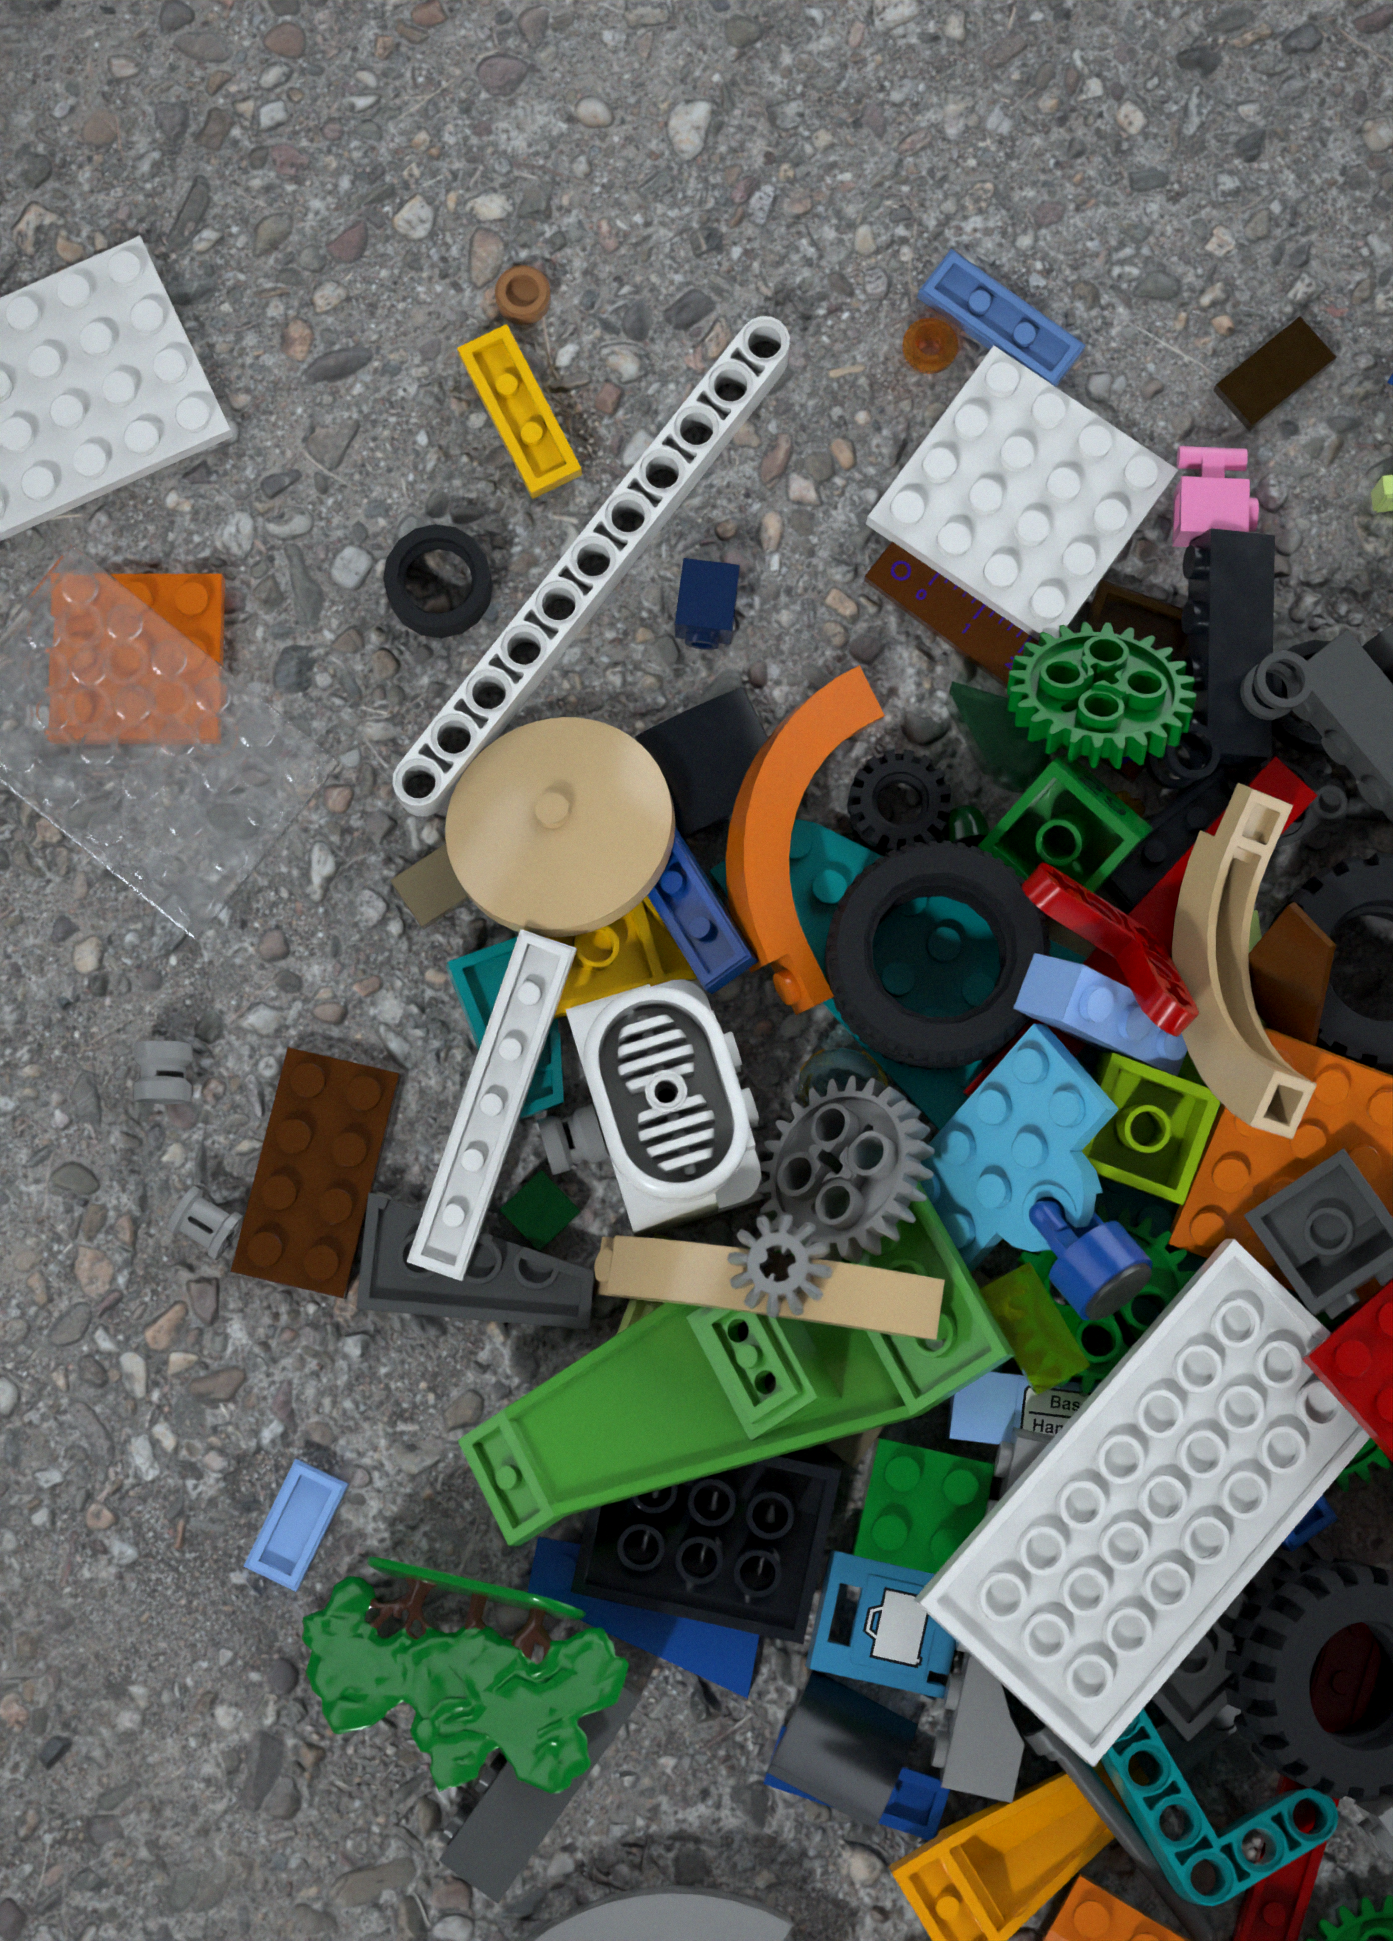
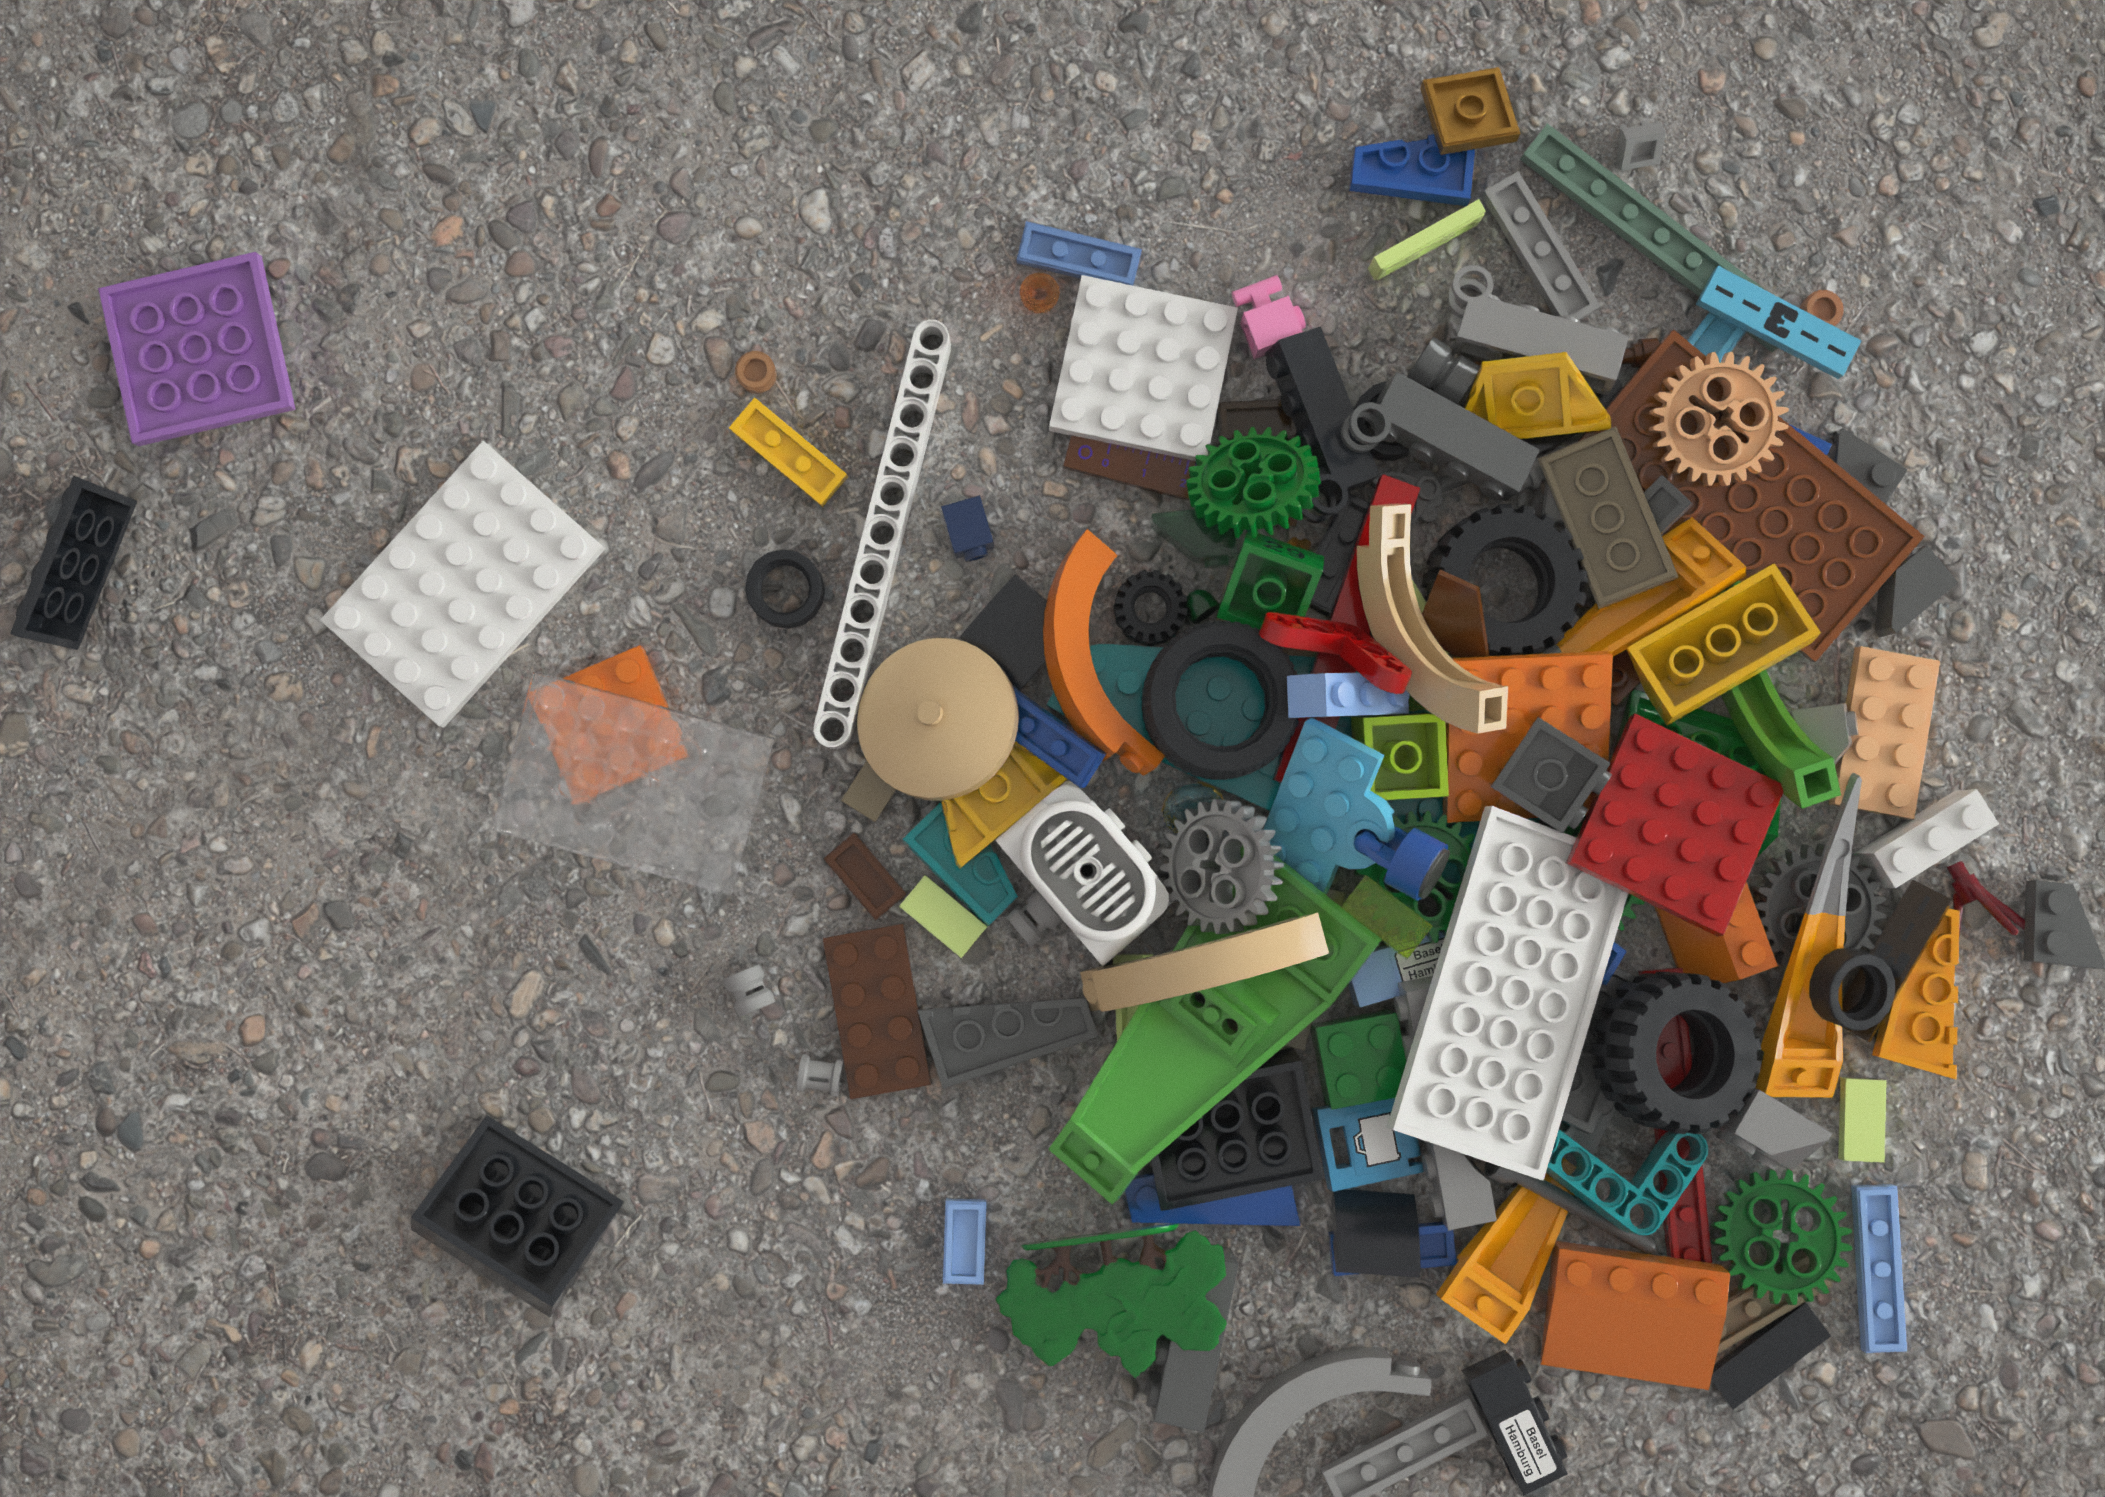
camera: 30 degrees left, 5 degrees up
(378, 992) = (865, 876): none -> reddish brown tile
(444, 1069) = (943, 916): none -> yellowish green tile
(491, 1105) = (973, 920): white tile -> none
(540, 1211) = (1033, 972): dark green tile -> none
(799, 1272) = (1198, 953): light grey gear -> none
(1274, 373) = (1273, 215): dark brown tile -> none

